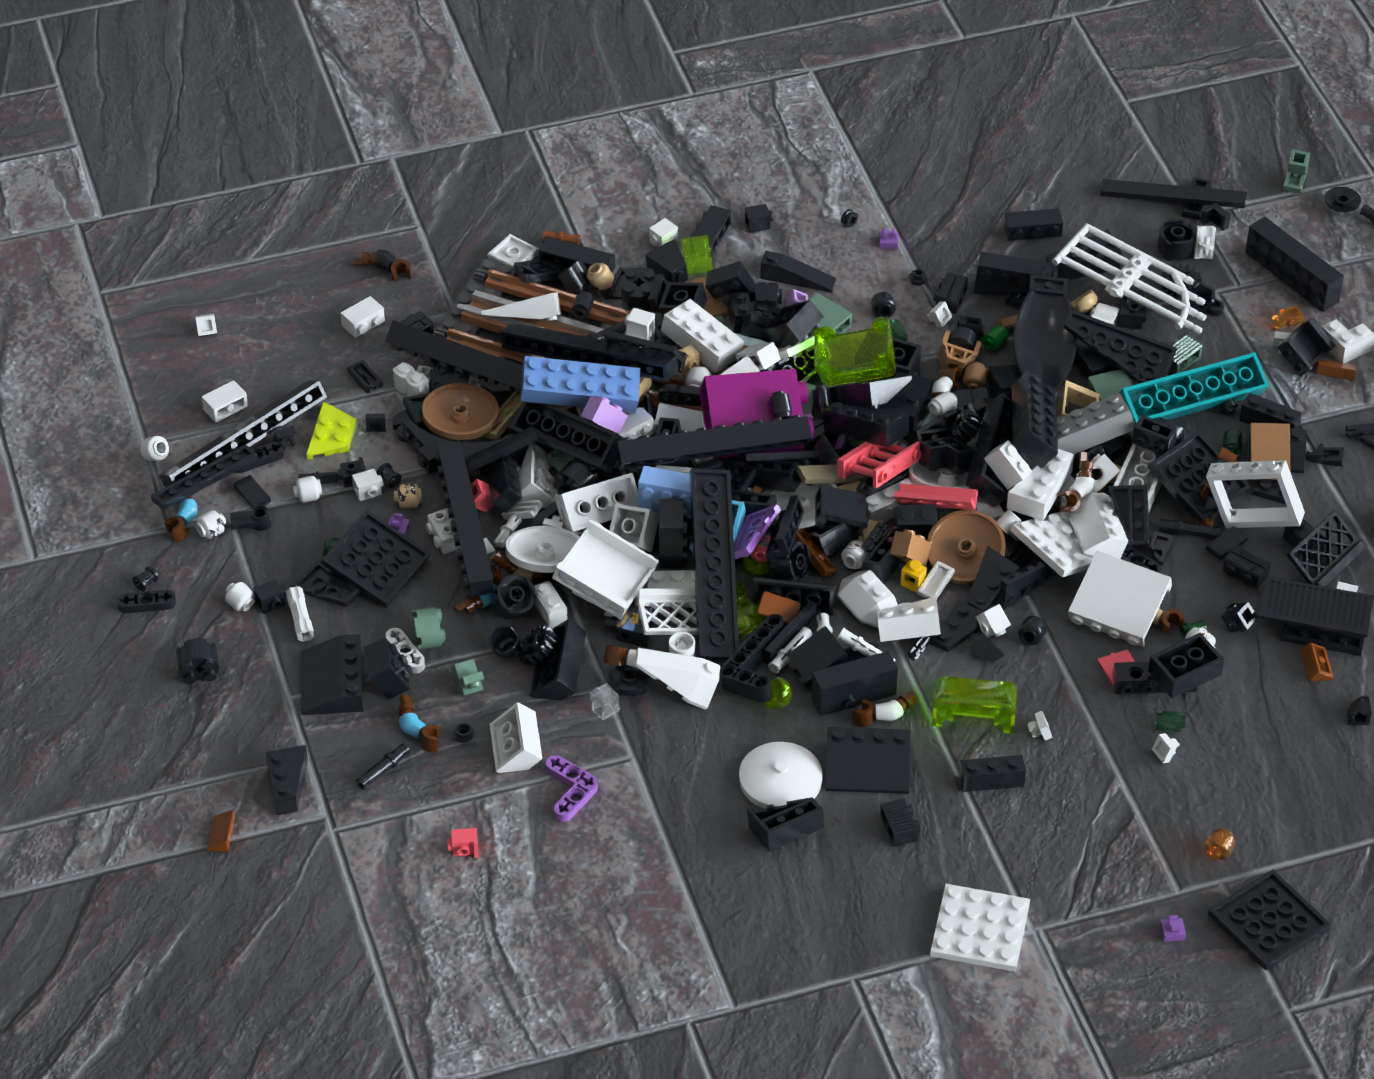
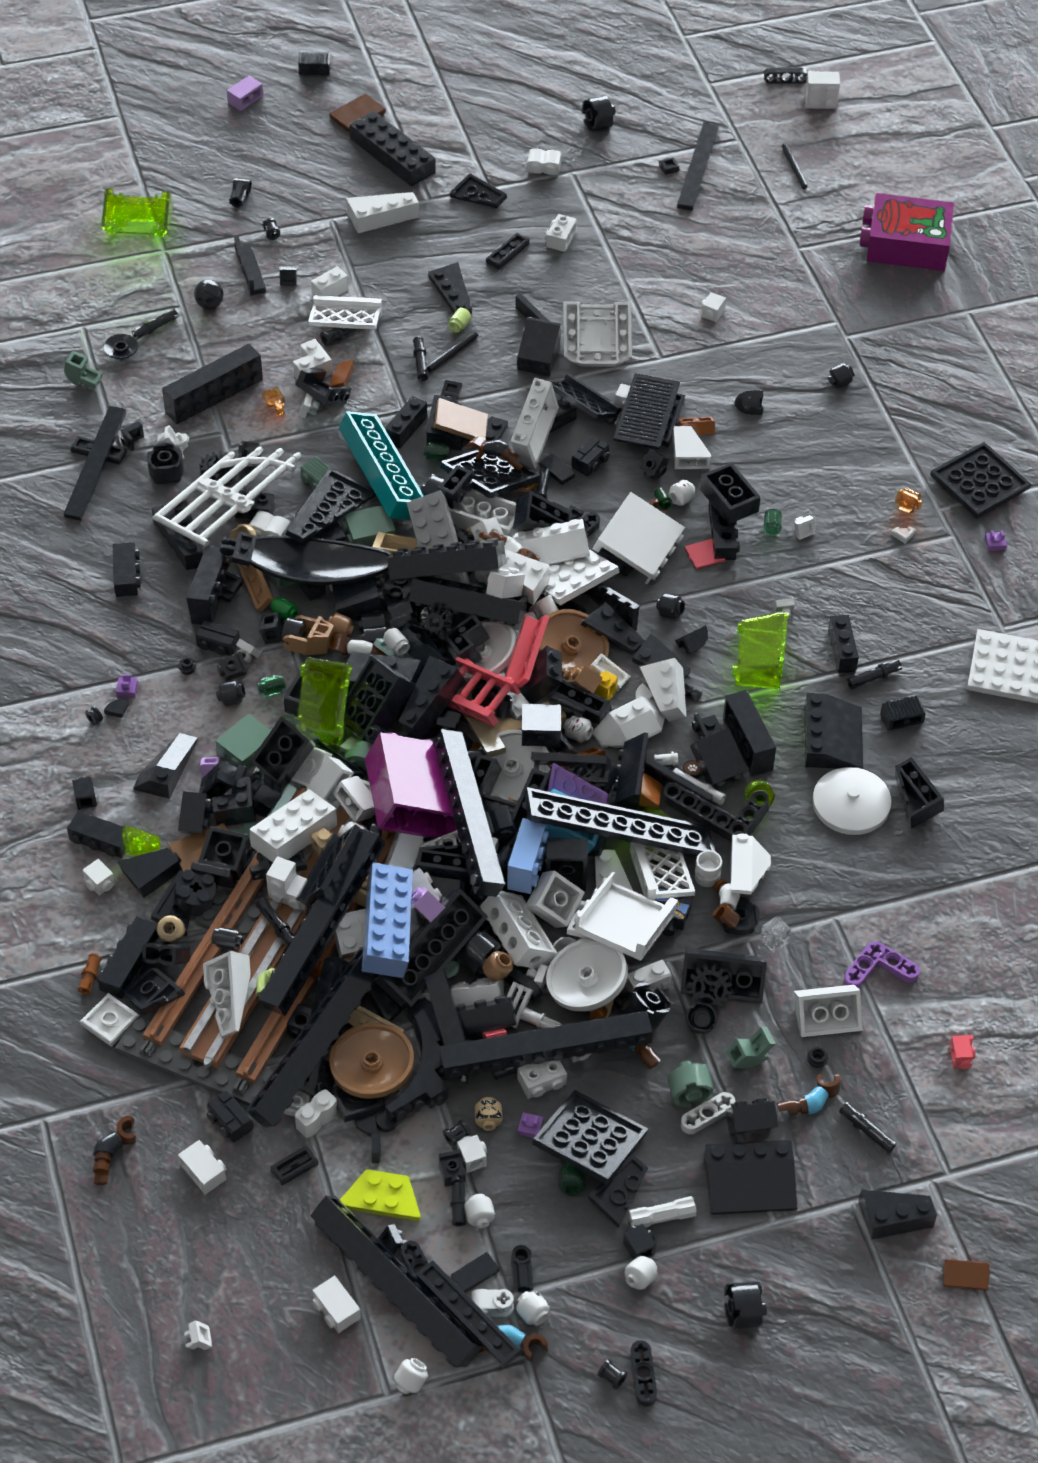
camera: 90 degrees left, 5 degrees up
(220, 498) = (491, 1302): none -> white piece
(553, 481) = (498, 966): none -> medium nougat head
(781, 405) = (425, 750): black brick -> none
(857, 643) = (708, 726): white pin -> none
(862, 235) = (117, 708): none -> black tile
(883, 711) = (772, 715): reddish brown piece -> none
(914, 300) = (232, 672): none -> black brick
(959, 808) = (881, 670): none -> black pin
(993, 621) = (663, 630): white brick -> none
(1173, 844) = (903, 534): none -> white tile
(1272, 649) = (689, 449): none -> white slope

